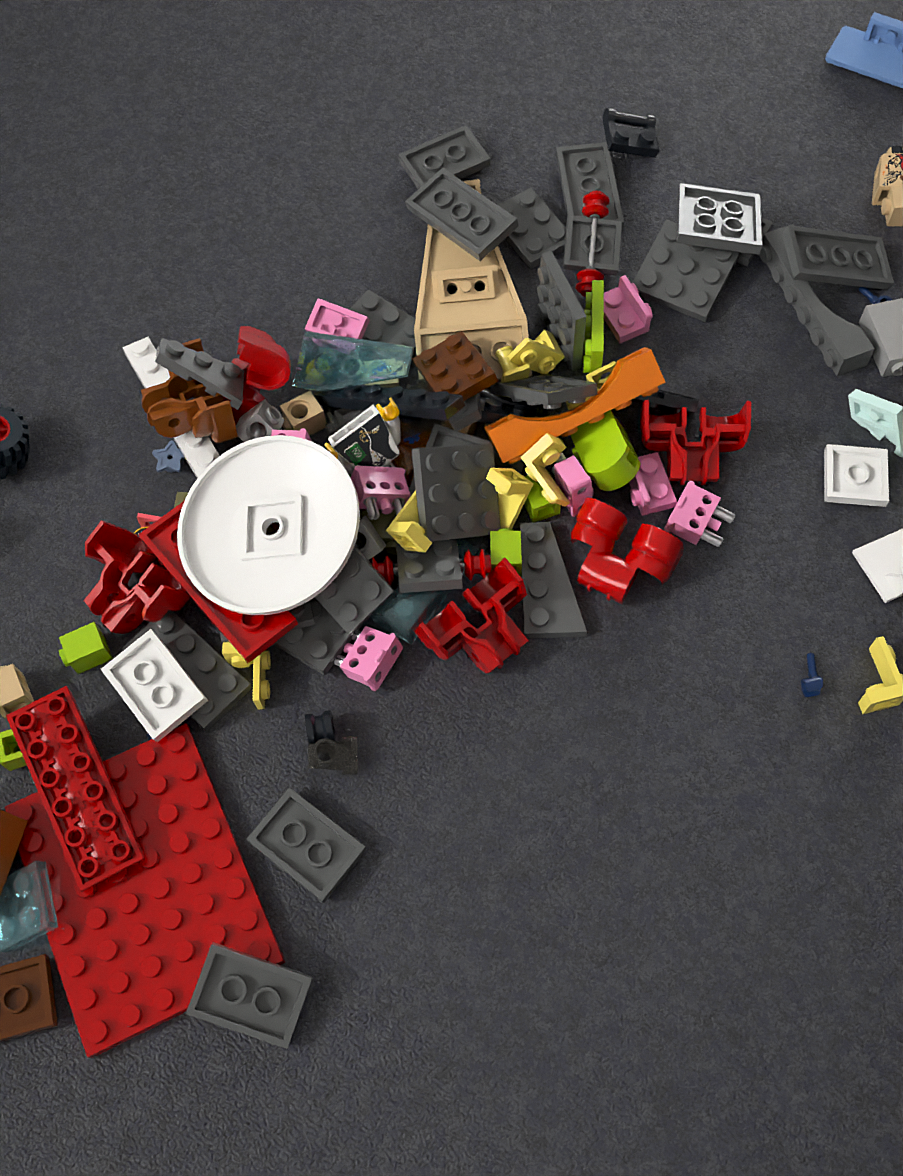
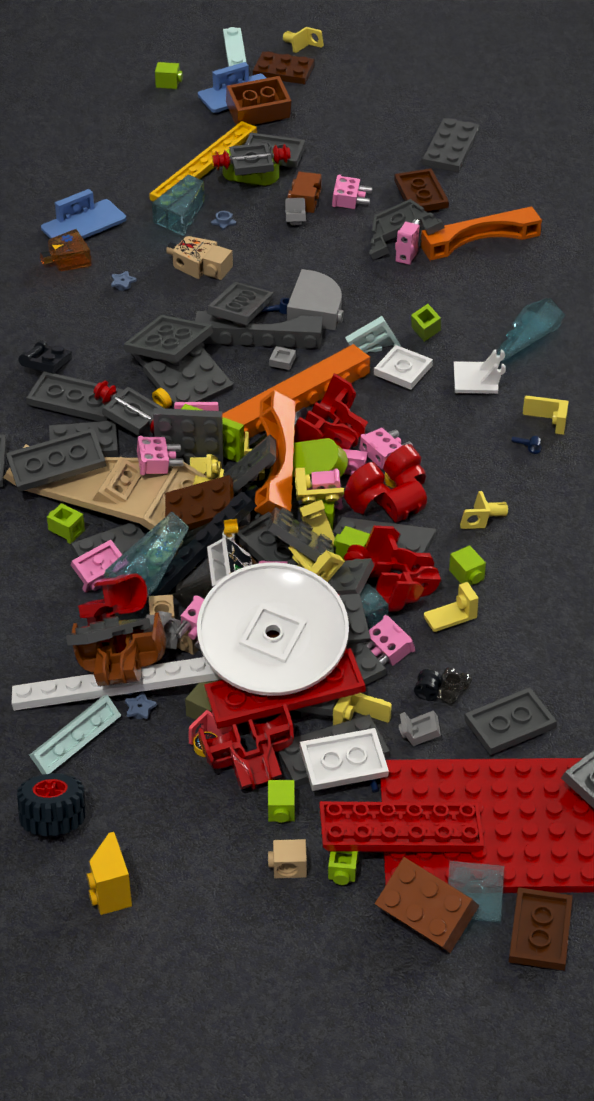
camera: 70 degrees left, 20 degrees down
(101, 420) = (75, 735): none -> light aqua plate
(248, 744) = (419, 728): none -> light grey bracket
(391, 270) = (66, 523): none -> lime brick
(452, 706) = (455, 613): none -> light yellow bracket
(510, 292) = (156, 455): none -> bright pink piece
(537, 693) = (467, 566): none -> lime brick
(634, 262) = (162, 398): none -> yellow tile
(651, 675) = (483, 511): none -> light yellow bracket
(732, 384) = (305, 386): none -> orange brick
(783, 344) = (282, 358): none -> light grey plate
(814, 142) = (122, 281): none -> sand blue plate
(817, 68) = (67, 252): none -> clear orange torso

